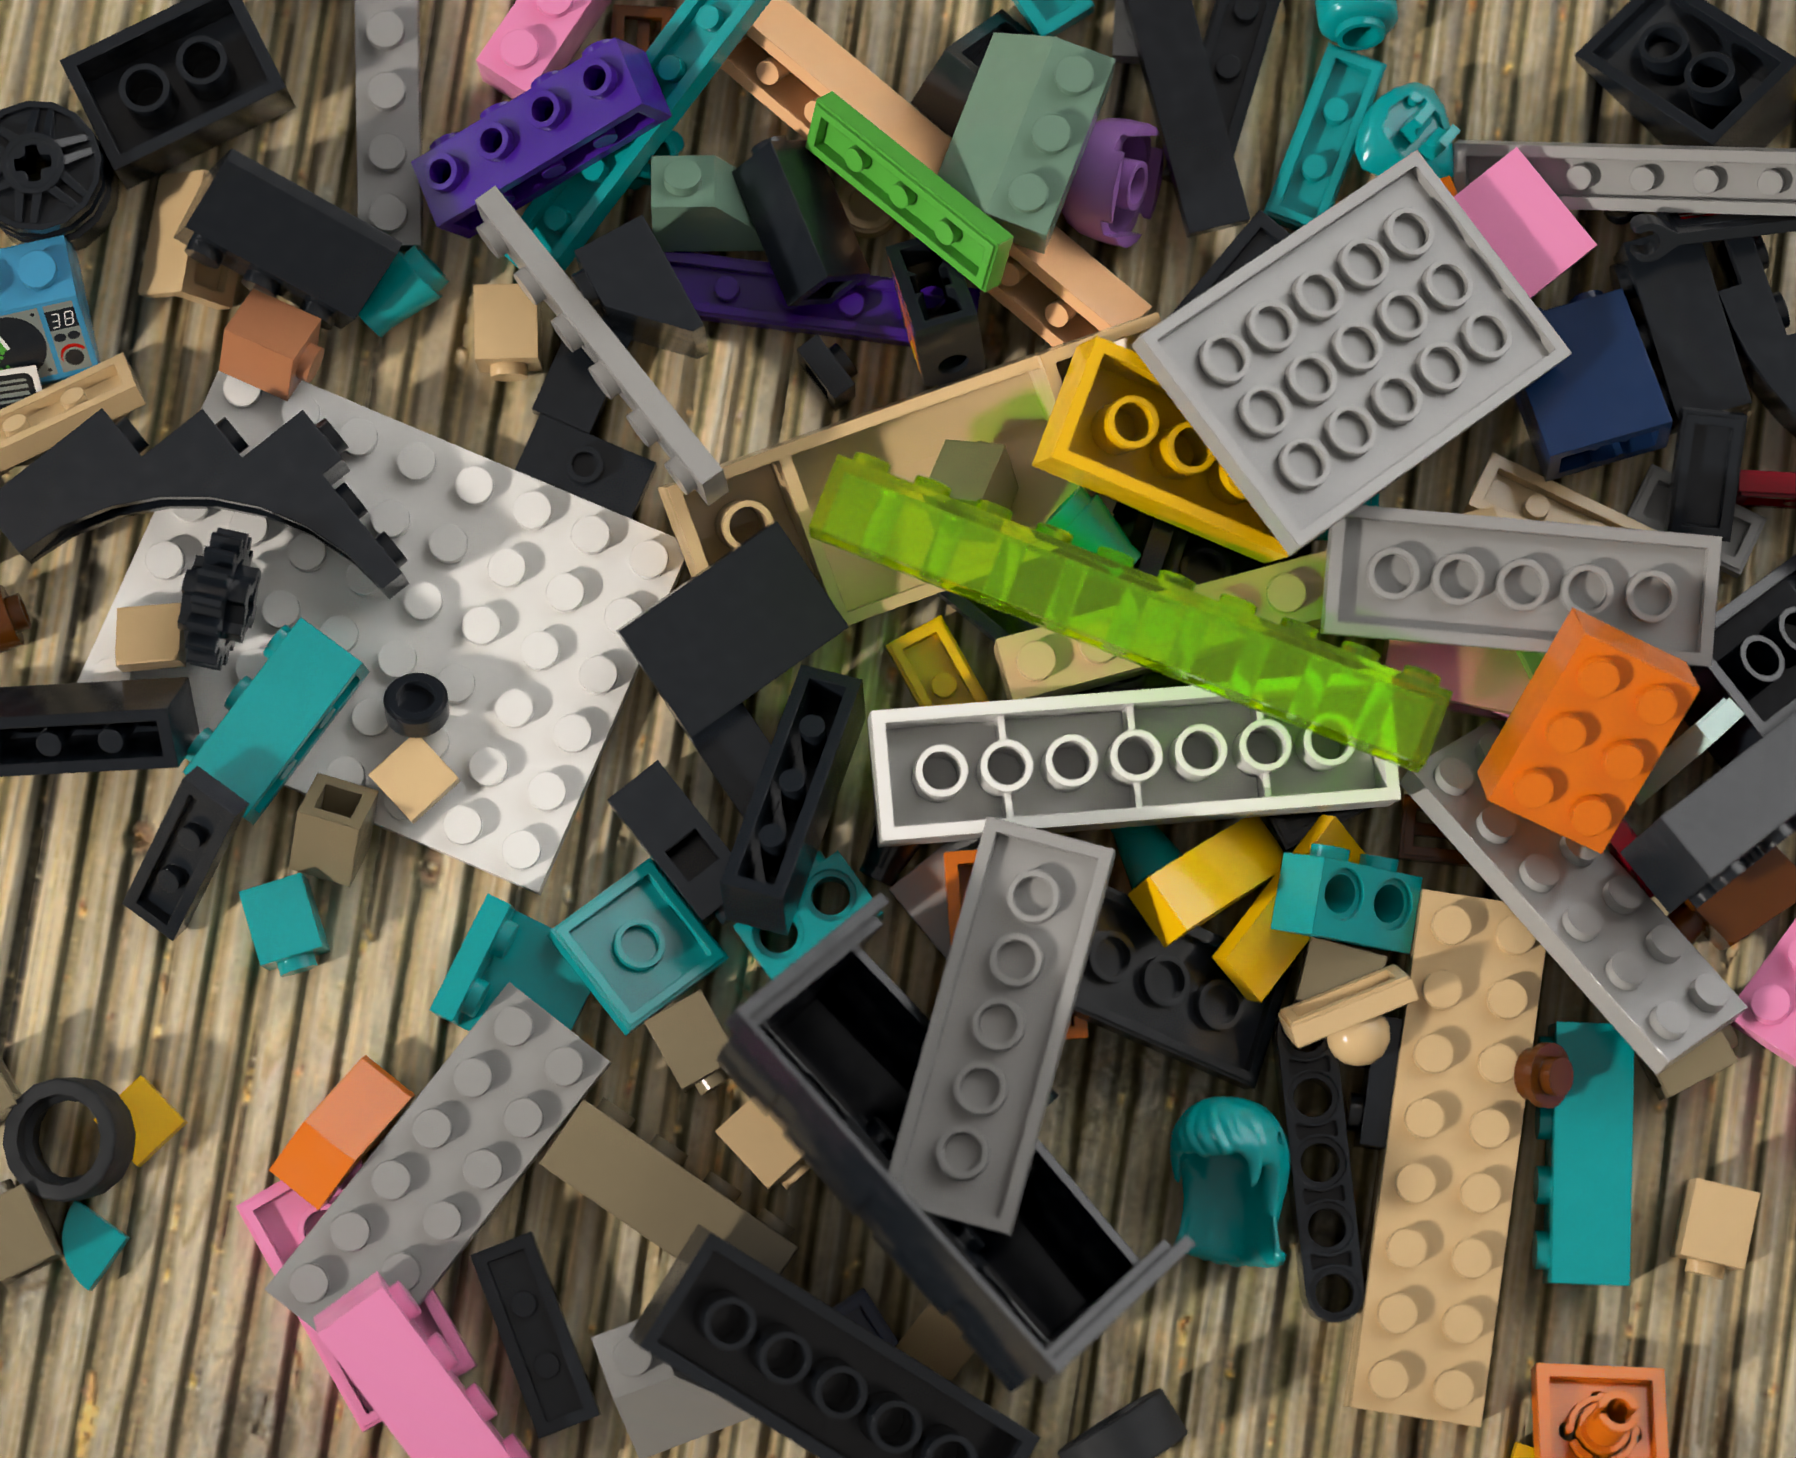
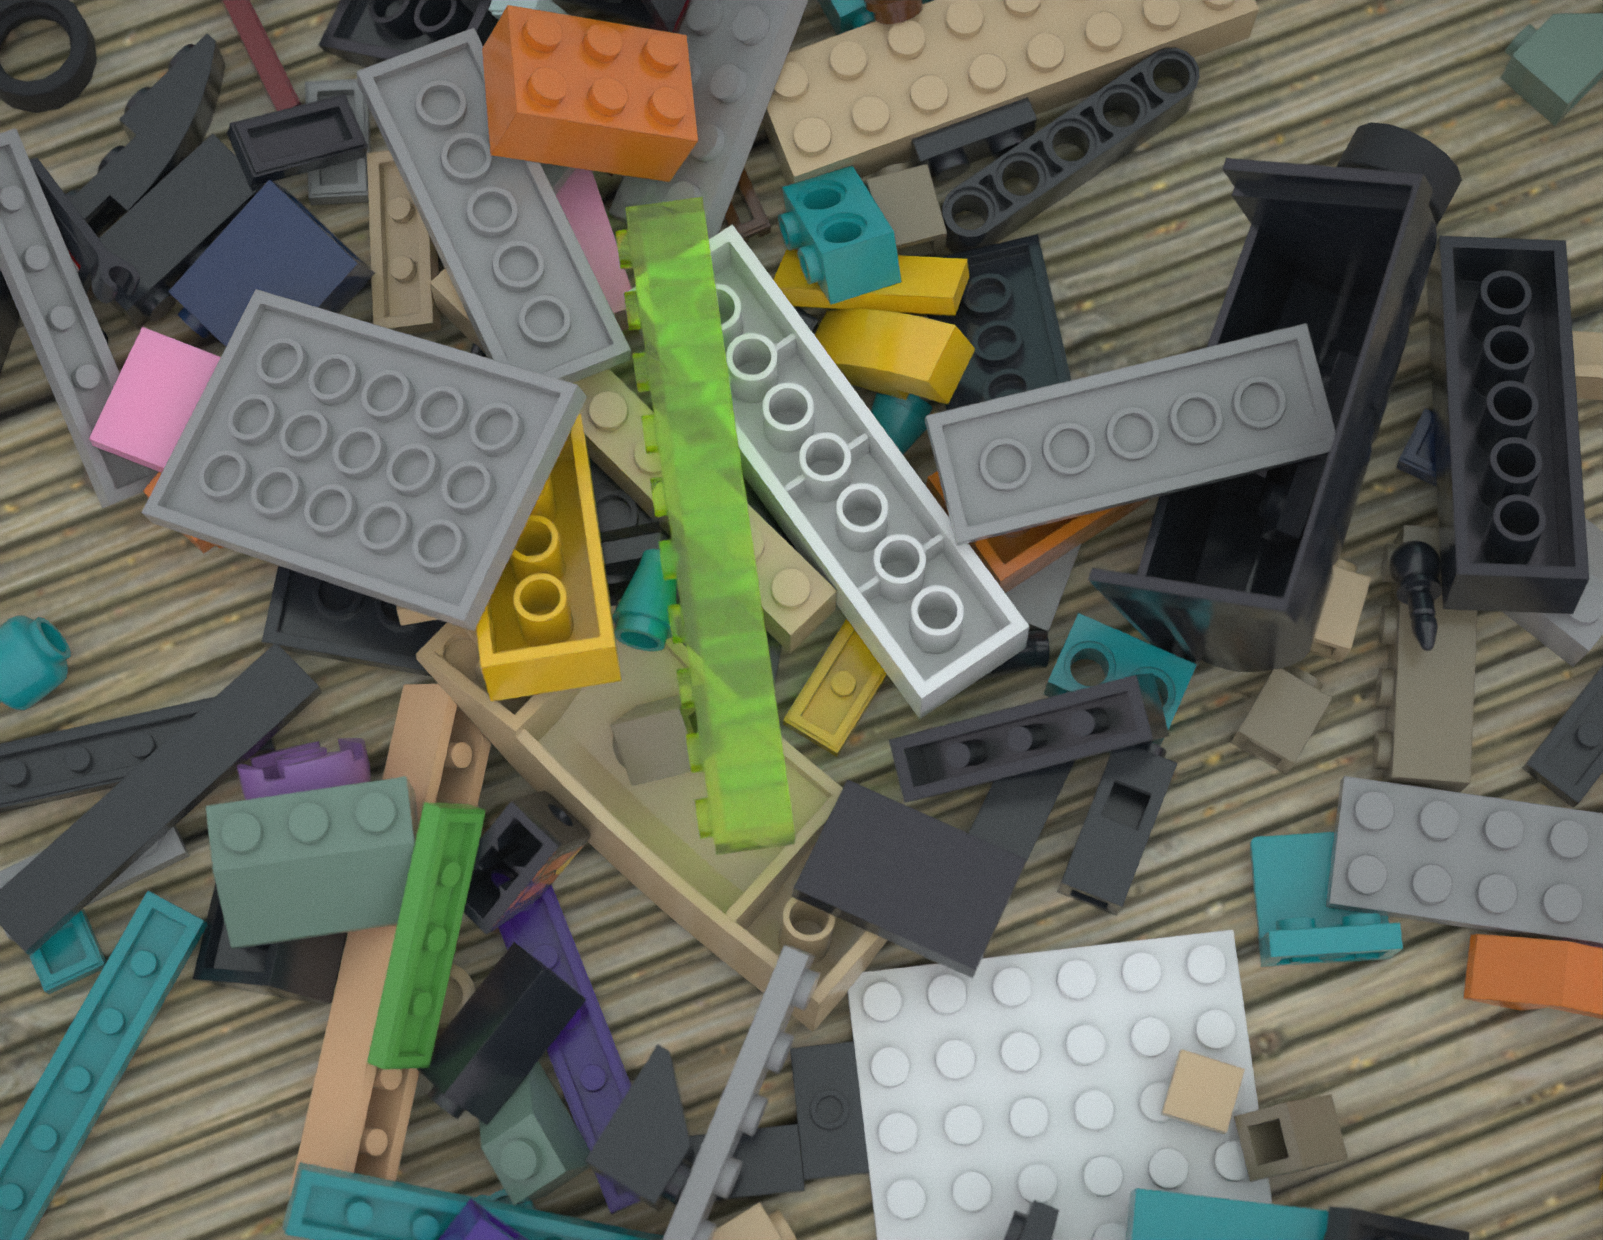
camera: 120 degrees left, 5 degrees down
(285, 924) = (1397, 1135): teal brick -> none
(416, 705) = (1139, 1125): black tile -> none
(637, 946) = (1228, 815): teal tile -> none
(749, 1227) = (1416, 572): none -> black bar
(829, 370) = (619, 938): black plate -> none
(936, 1343) = (1413, 382): tan slope -> none
(1232, 1181) = (1129, 205): teal piece -> none
(1324, 137) = (164, 626): teal tile -> none
(1351, 1015) = (936, 174): tan tile -> none
(1404, 122) = (124, 550): teal piece -> none

